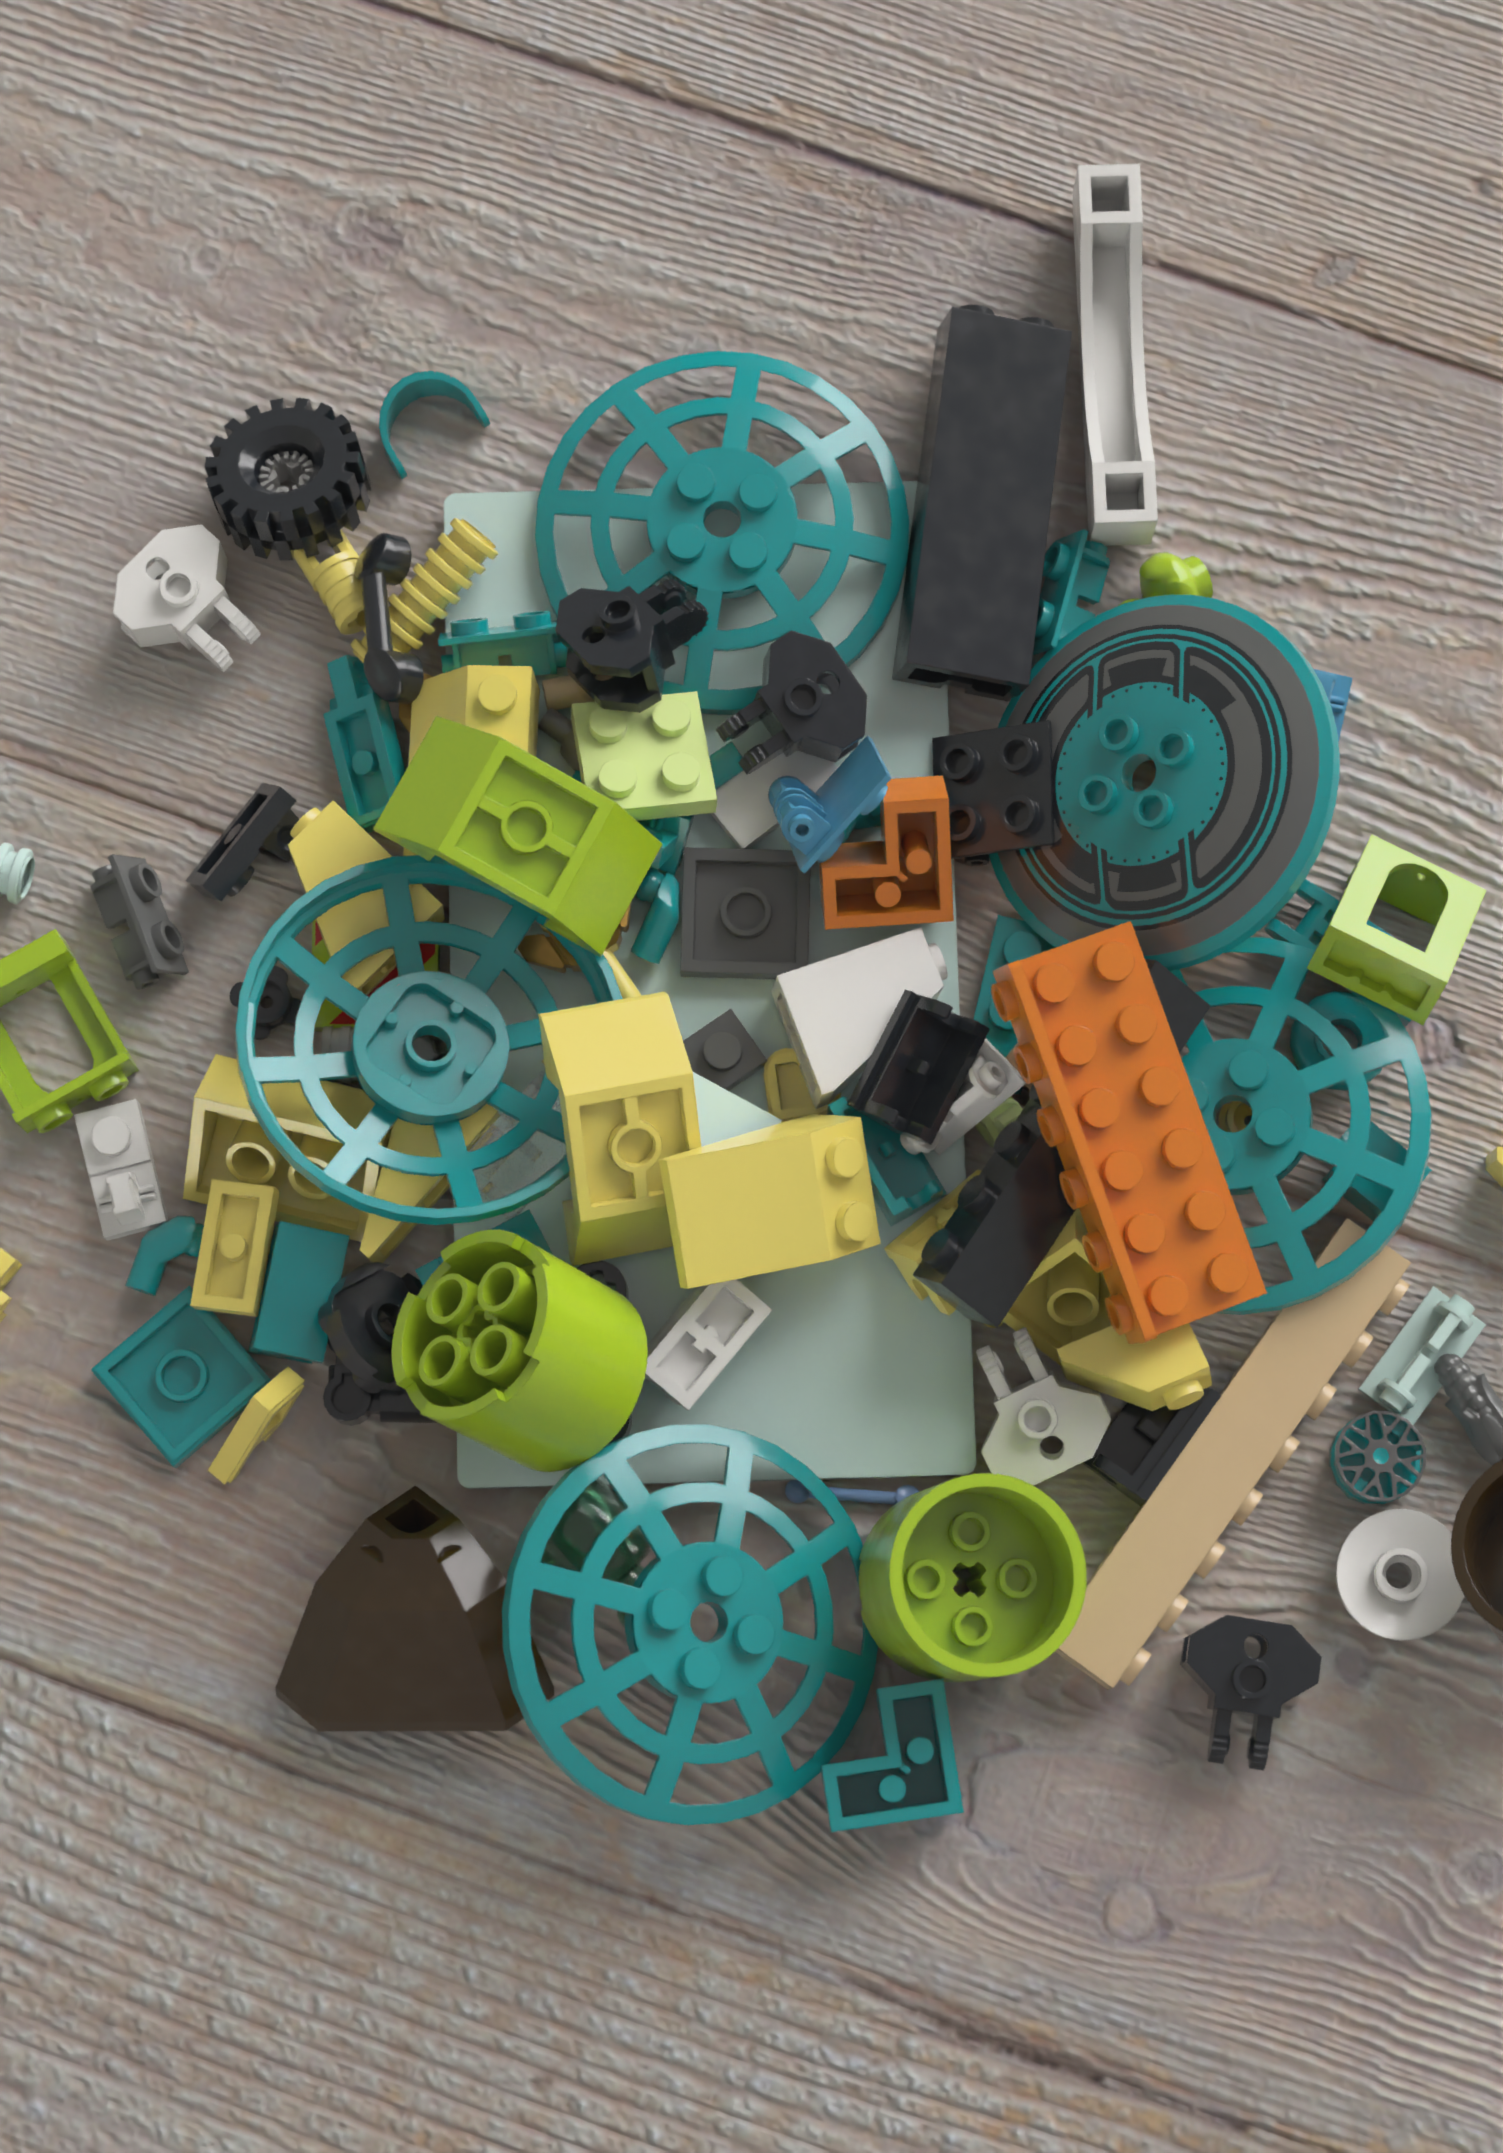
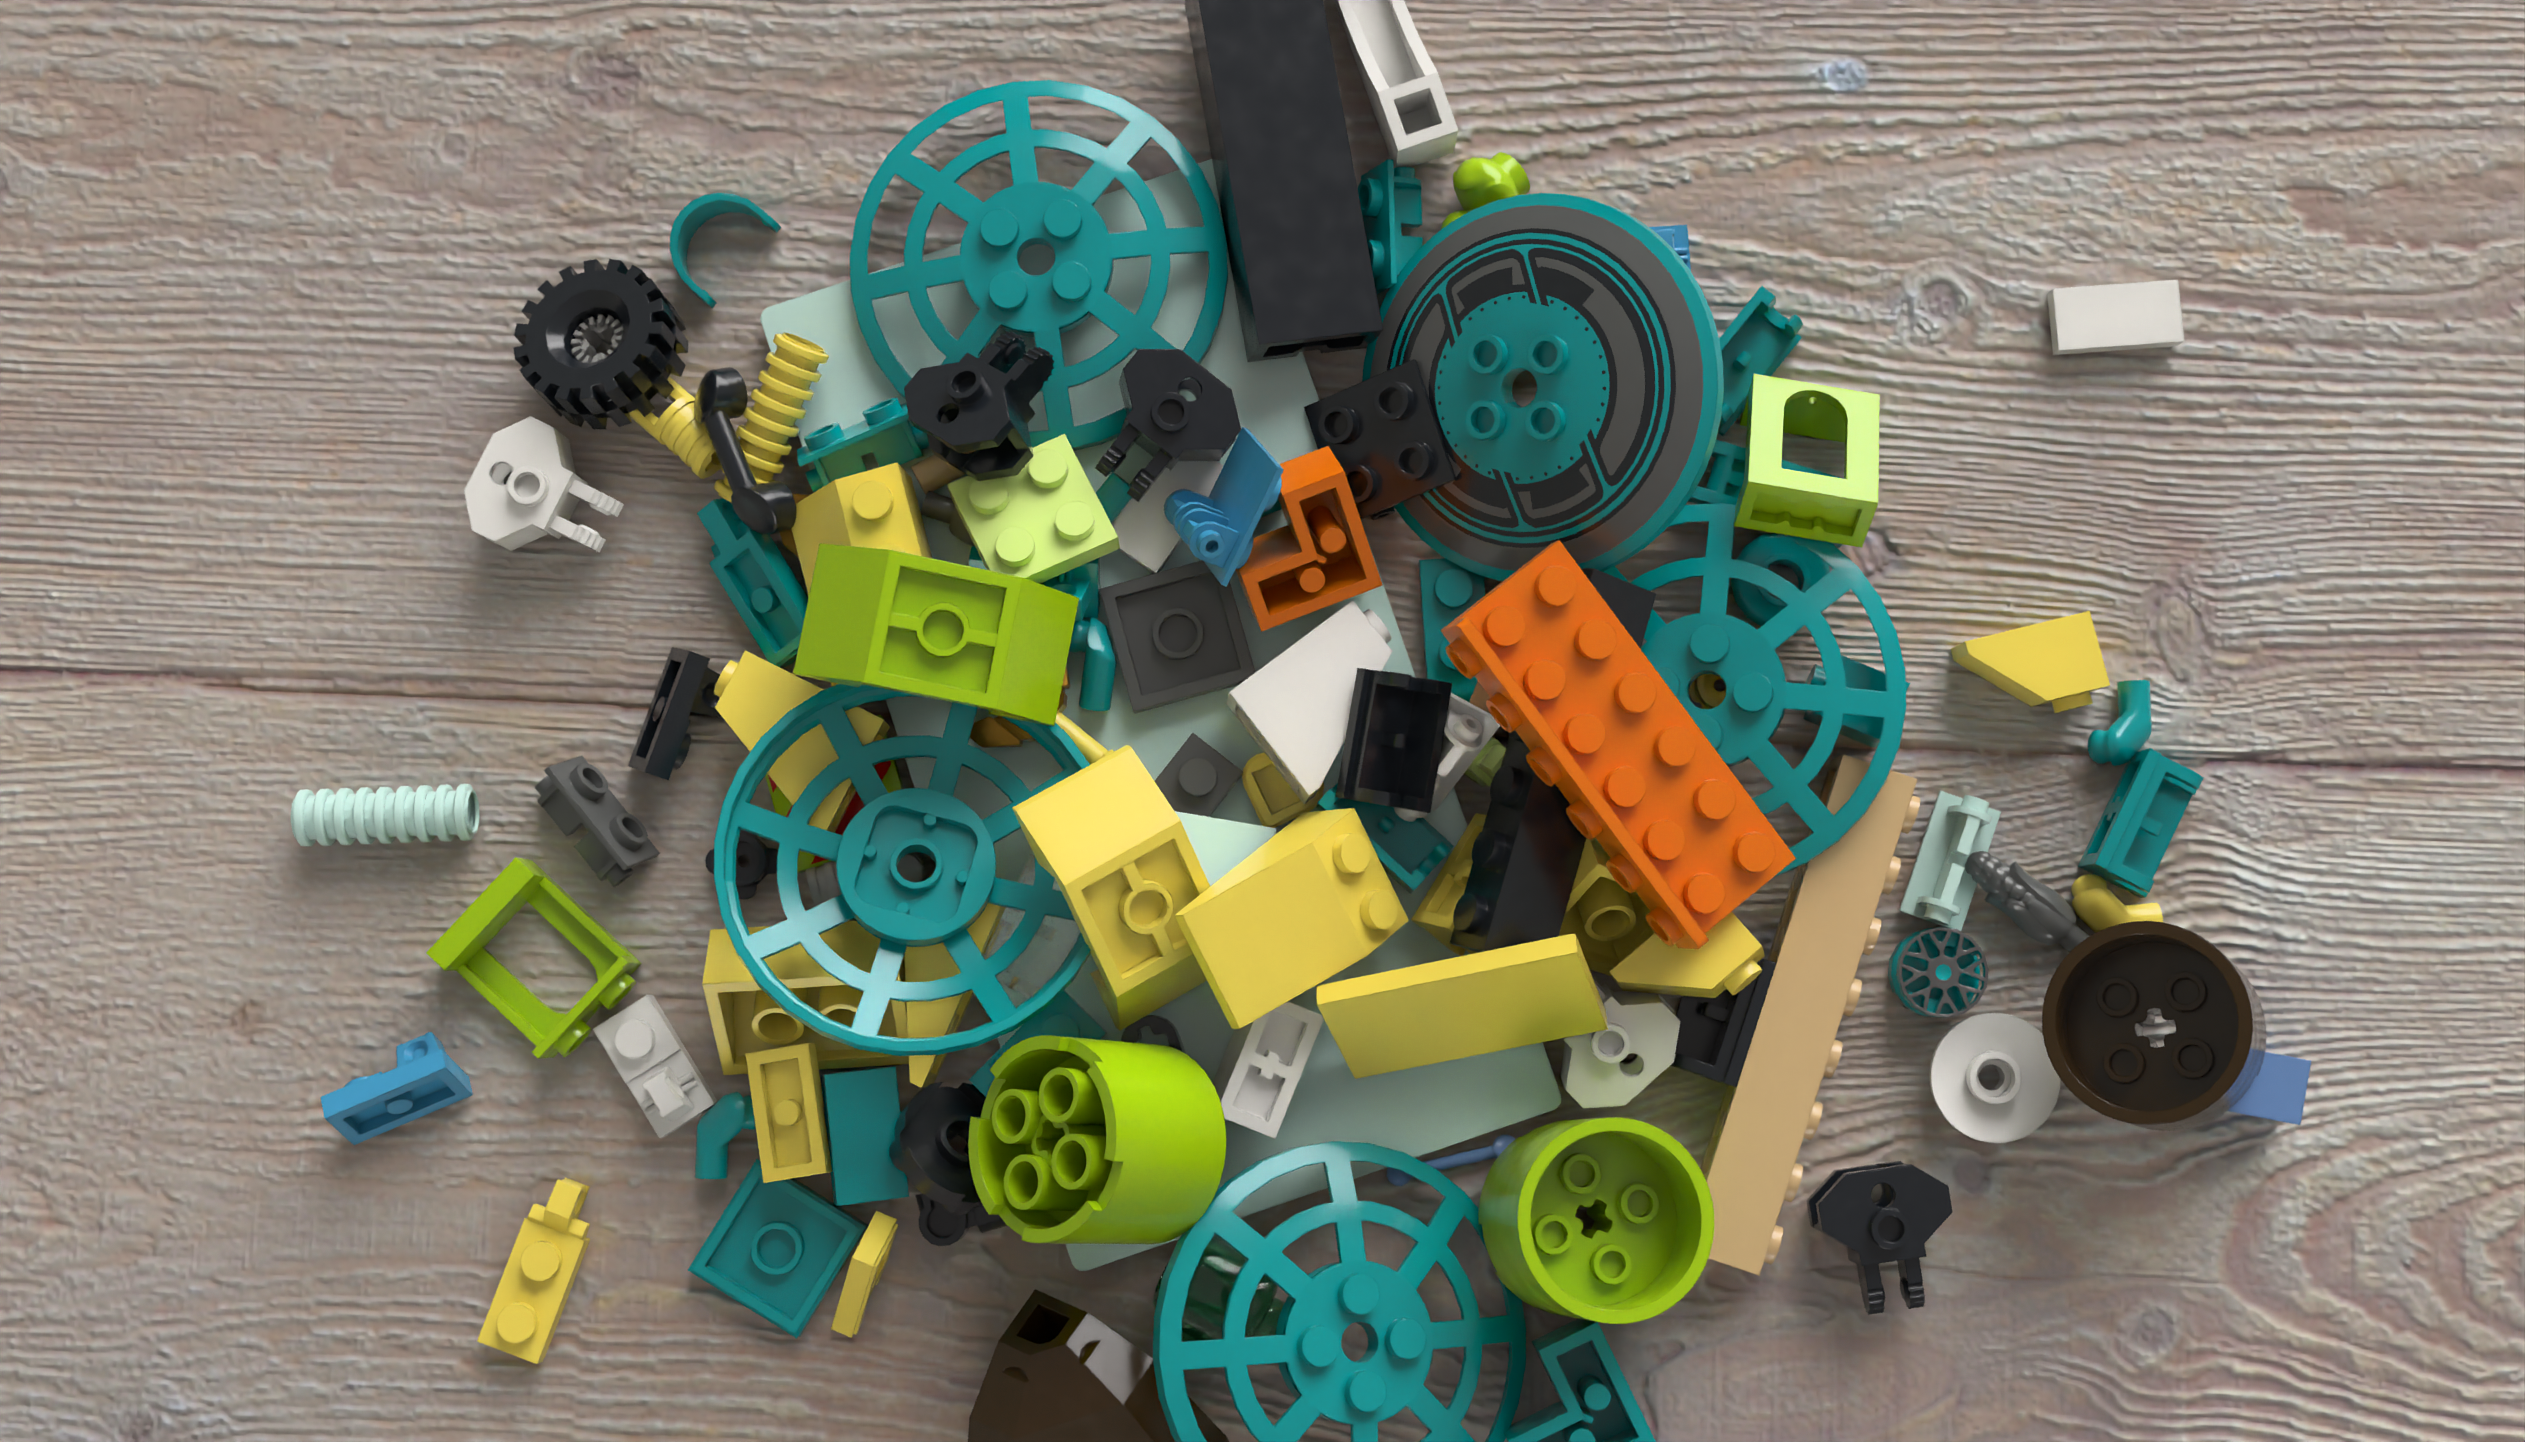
camera: 15 degrees left, 5 degrees up
(906, 1337) = (1463, 1006): none -> light yellow tile
(1377, 805) = (1753, 345): none -> teal hinge

